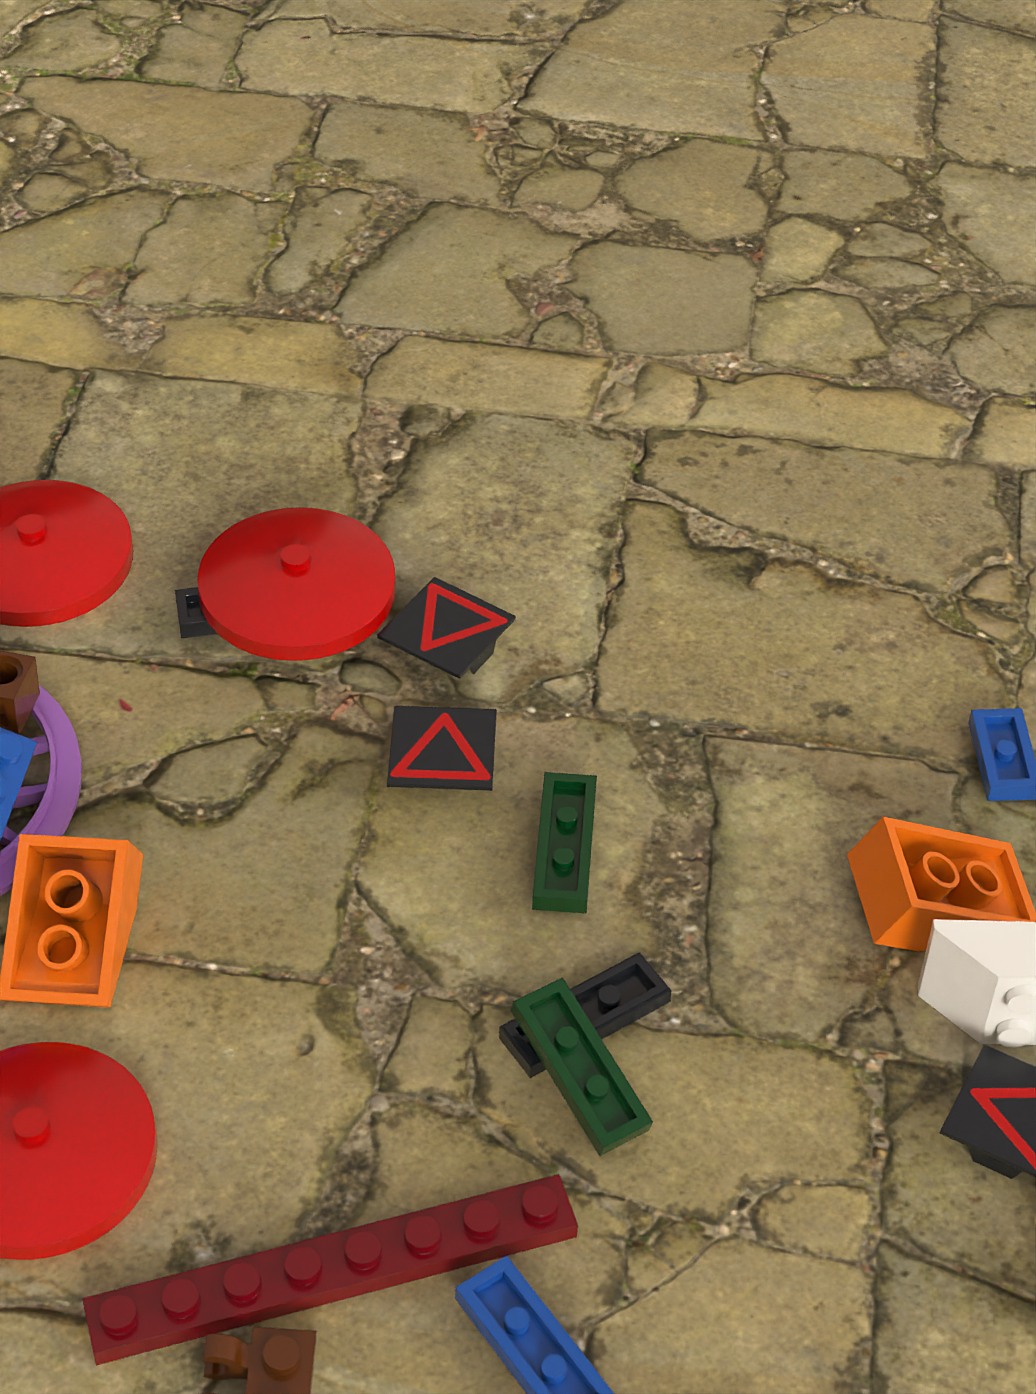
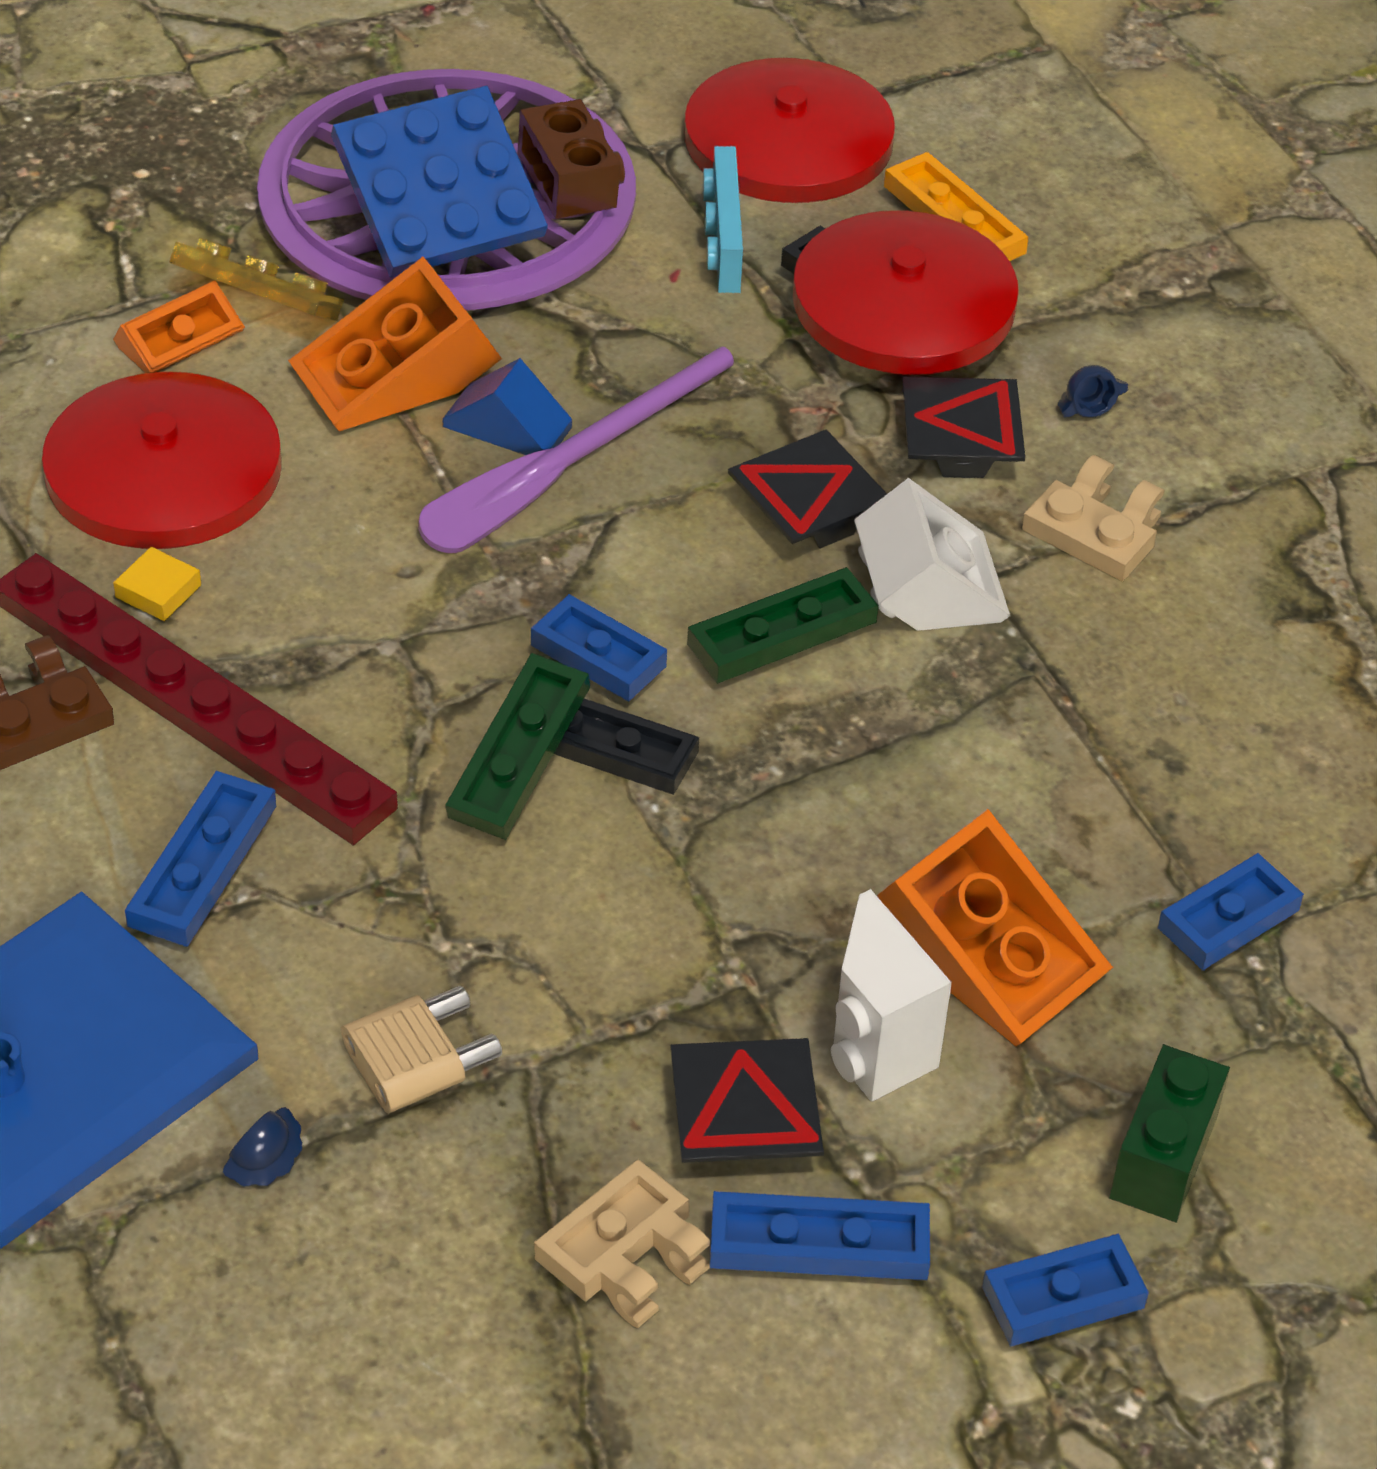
camera: 55 degrees right, 0 degrees up
(112, 638) = (723, 219): none -> medium azure plate
(186, 1226) = (157, 583): none -> yellow tile
(194, 884) = (510, 411): none -> blue slope
(211, 510) = (933, 189): none -> light orange plate
(278, 942) = (498, 495): none -> medium lavender piece
(469, 550) = (1091, 392): none -> dark blue piece
(502, 963) = (599, 646): none -> blue plate
(571, 728) = (928, 562): none -> white slope
(596, 626) = (1092, 531): none -> tan plate
(830, 1308) = (408, 1053): none -> tan piece

